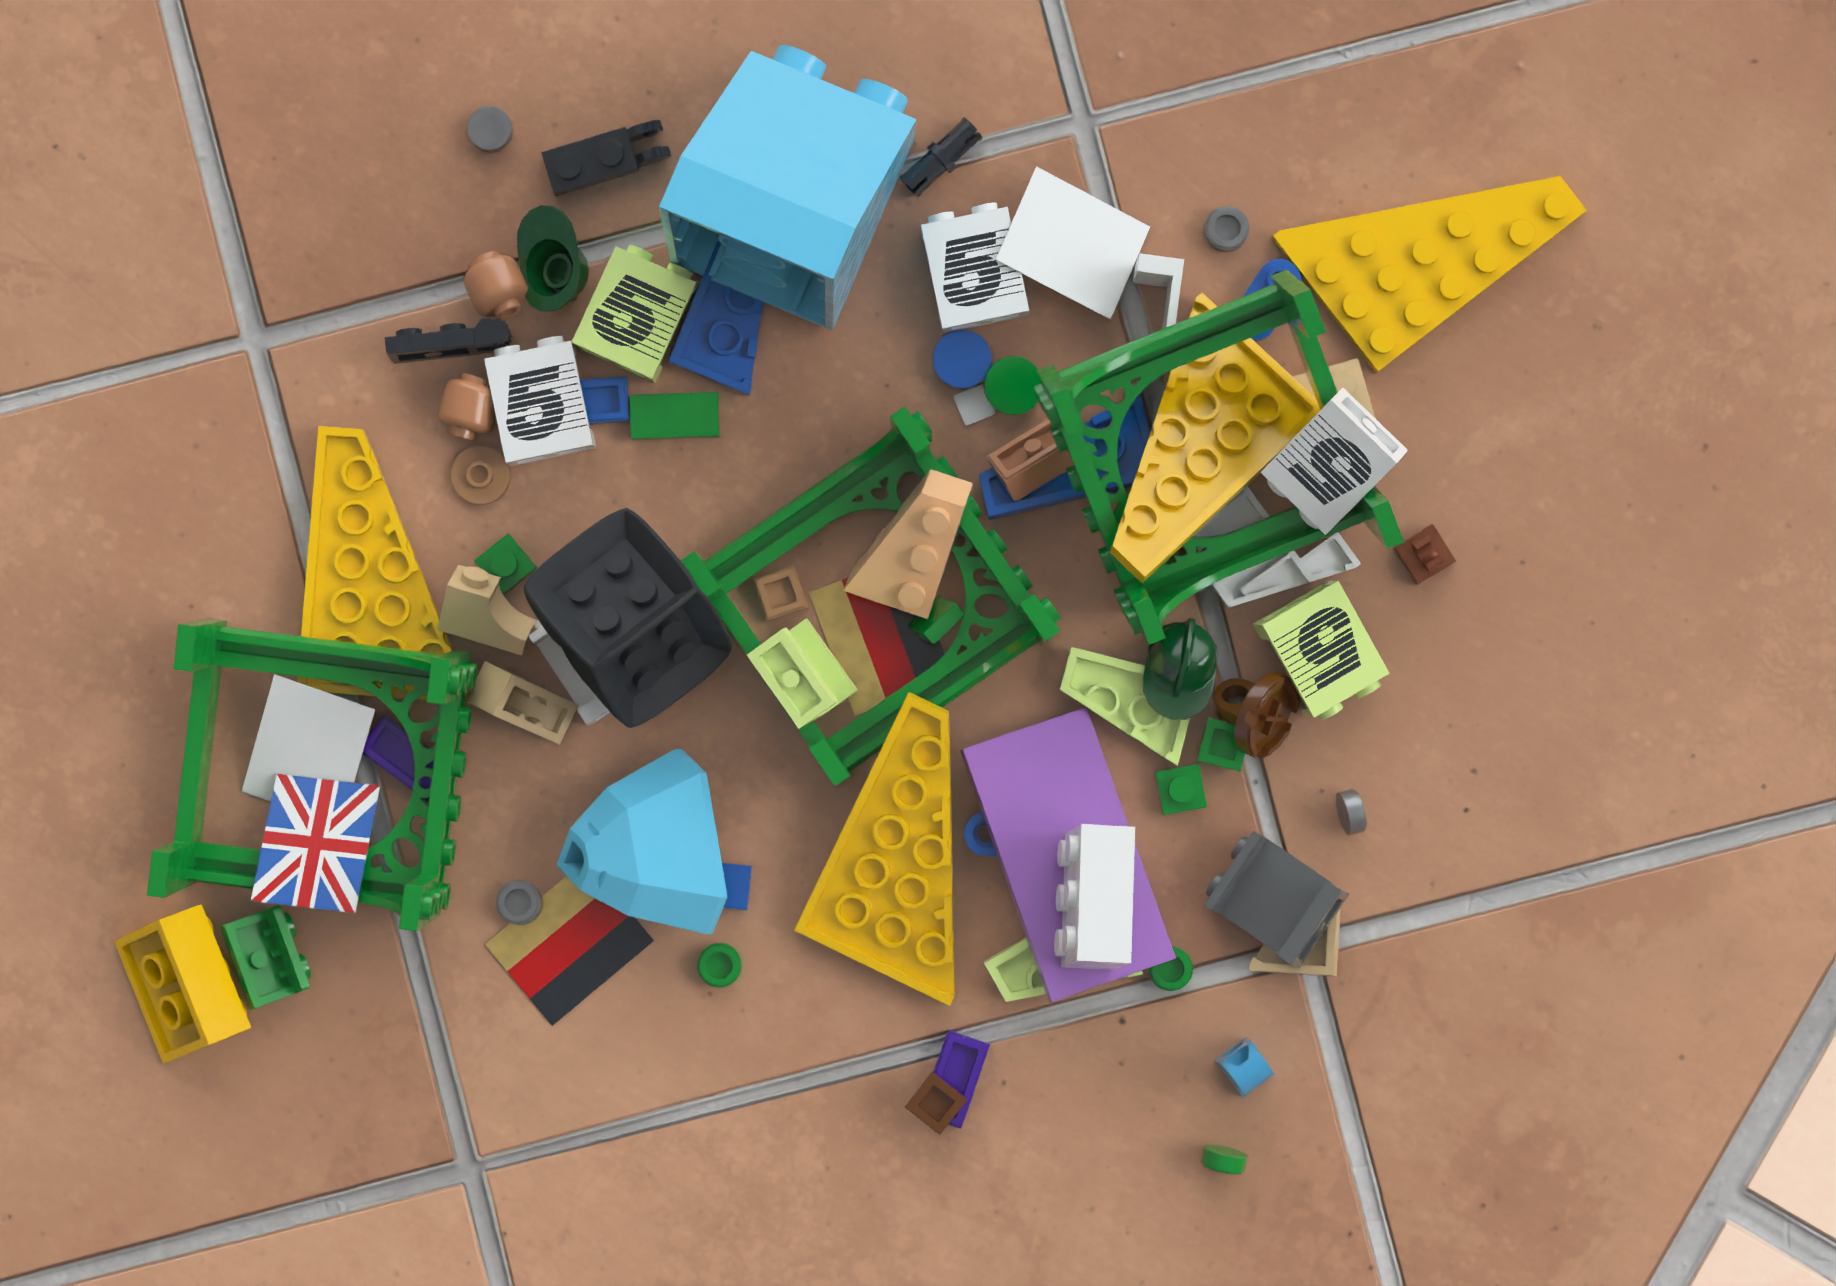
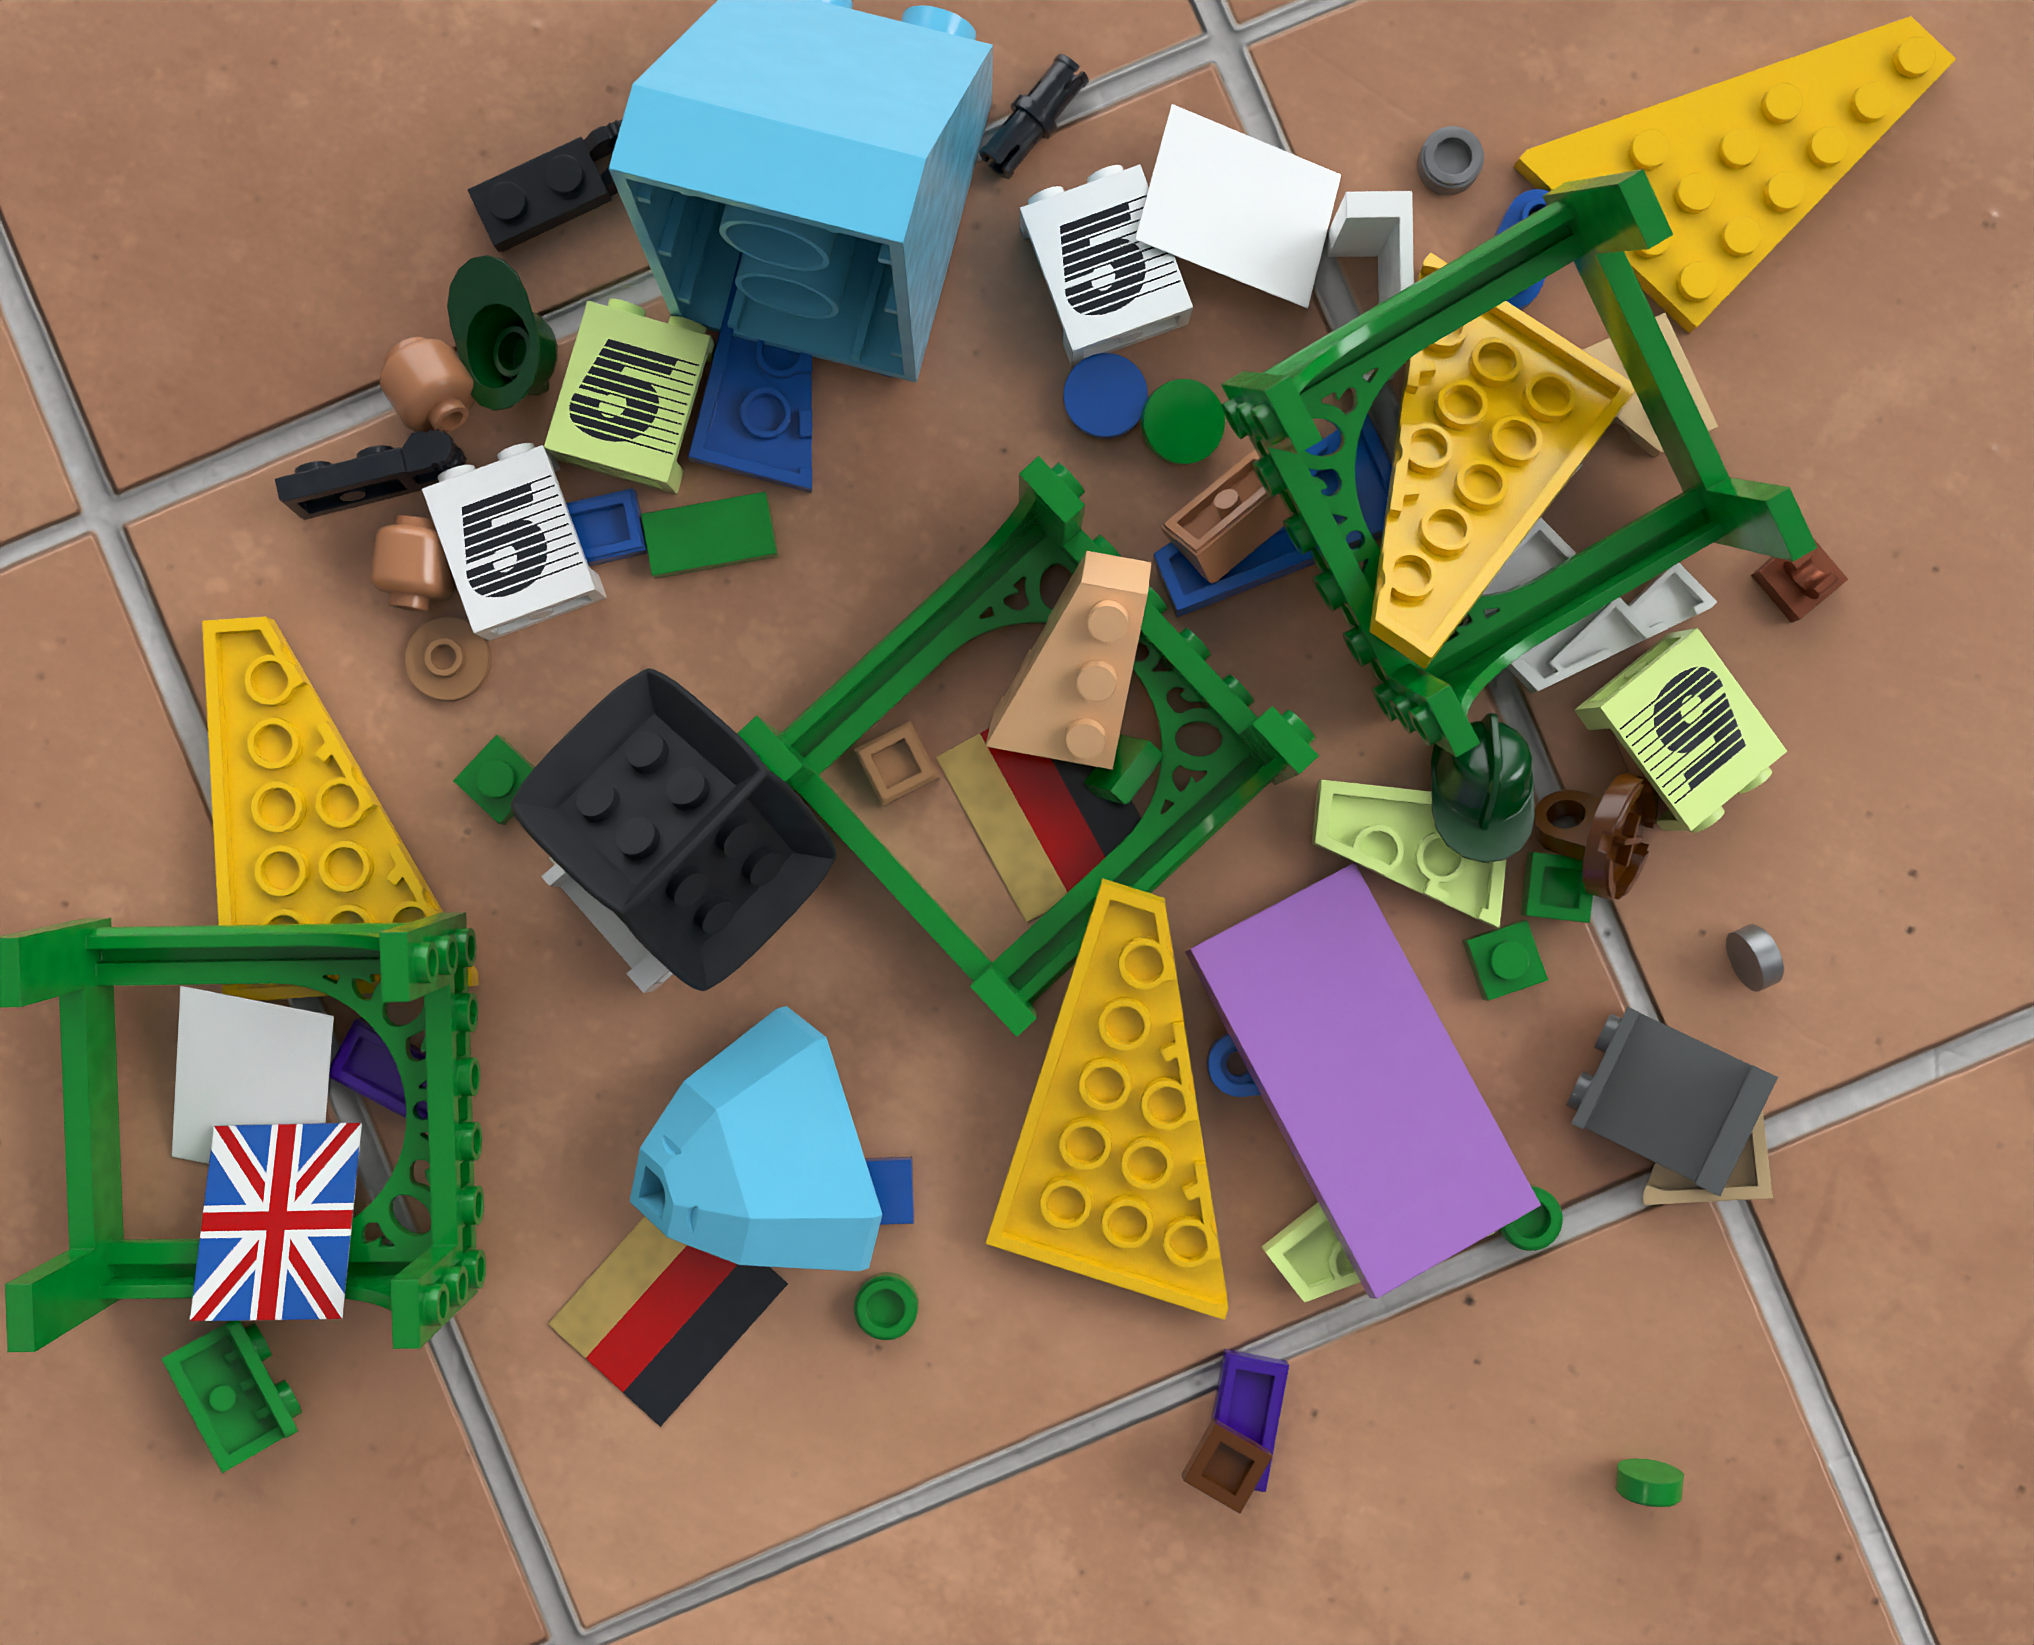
camera: 10 degrees left, 0 degrees up
(182, 983) = (121, 1447): yellow slope -> none
(481, 613) = (468, 852): tan arch -> none
(490, 129) = (391, 169): flat silver tile -> none
(519, 902) = (587, 1258): flat silver tile -> none
(522, 703) = (548, 974): tan arch -> none
(802, 673) = (942, 873): yellowish green panel -> none
(973, 405) = (1130, 459): white sticker -> none
(1096, 897) = (1424, 1141): white brick -> none
(1244, 1067) = (1663, 1347): dark azure leg -> none
(1333, 462) = (1680, 452): white panel -> none

